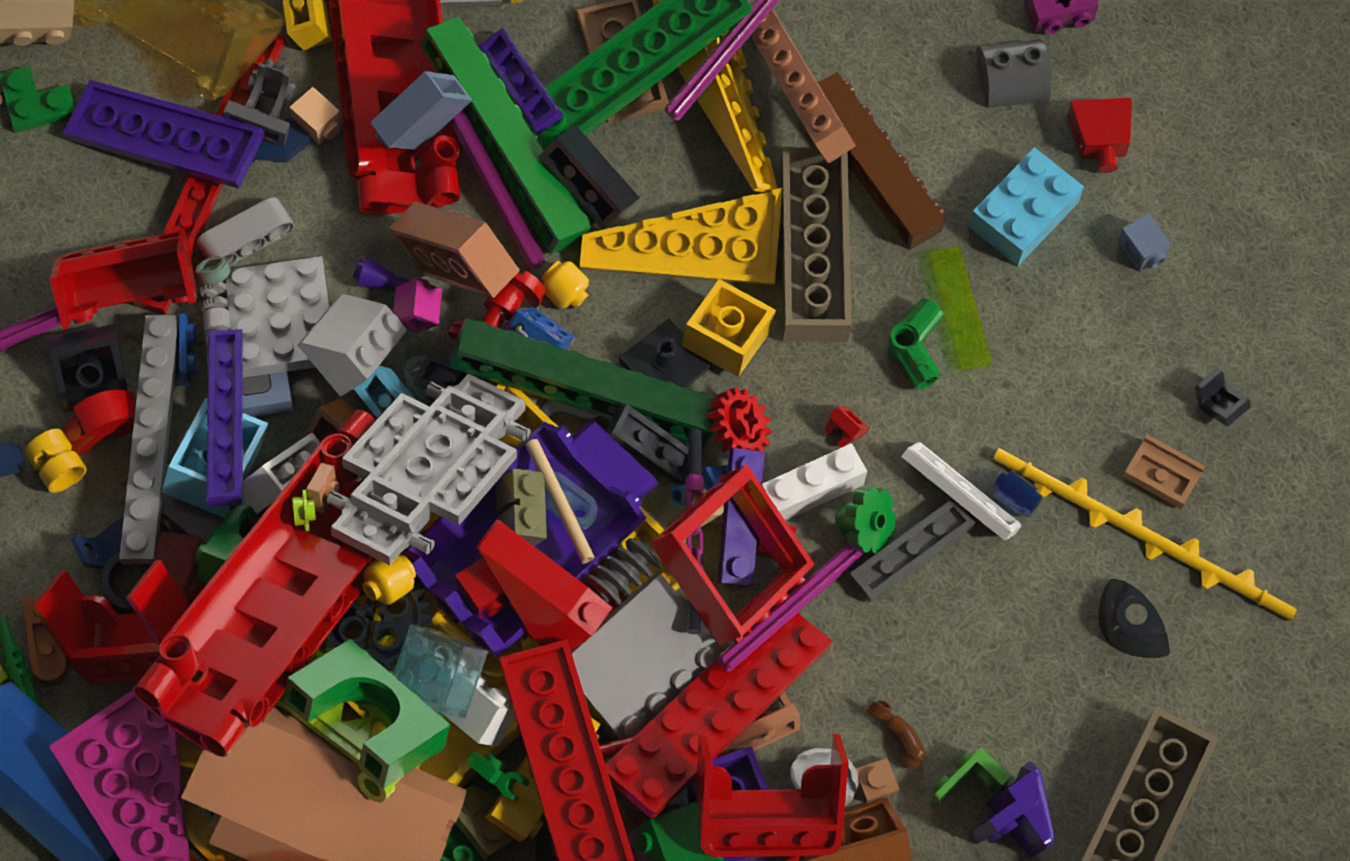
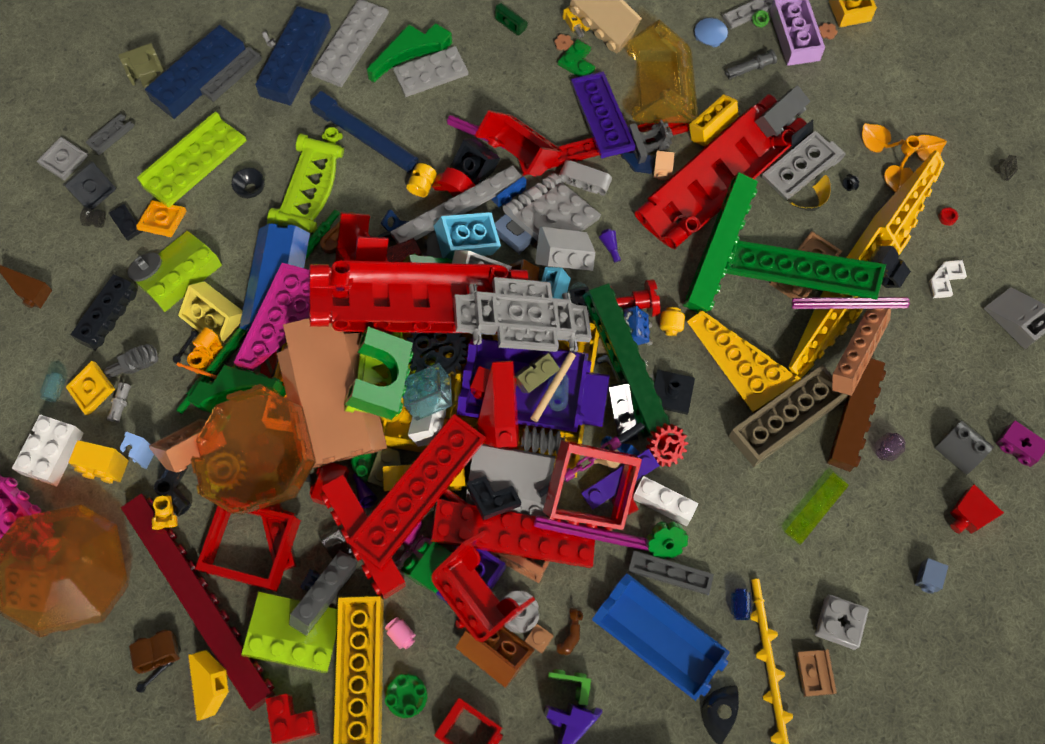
camera: 60 degrees right, 0 degrees up
(212, 270) = (554, 175): sand green tile -> none
(225, 418) = (483, 223): dark purple tile -> none
(303, 510) = (457, 279): lime plate -> none
(321, 486) = (478, 278): nougat plate -> none
(388, 582) = (454, 341): yellow head -> none
(417, 304) = (609, 267): dark pink brick -> none
(420, 111) = (697, 198): sand blue brick -> none
(454, 249) = (643, 258): nougat brick -> none
(492, 770) = (403, 452): green plate -> none
(497, 190) = (694, 256): magenta axle -> none
(521, 81) = (753, 232): dark purple plate -> none
(588, 177) = (731, 292): black brick -> none
(653, 704) = (490, 502): none -> black plate
(728, 327) = (710, 406): yellow brick -> none
(852, 425) = (710, 497): red tile -> none
(914, 358) = (787, 494): green piece -> none
(948, 157) = (890, 446): none -> head
(961, 490) = (720, 576): white tile -> none
(986, 621) = (661, 637): none -> blue panel
(1025, 206) = (898, 502): medium azure brick -> none
(1119, 410) = (831, 629): none -> light grey brick
(1220, 399) = (881, 675): black bracket -> none

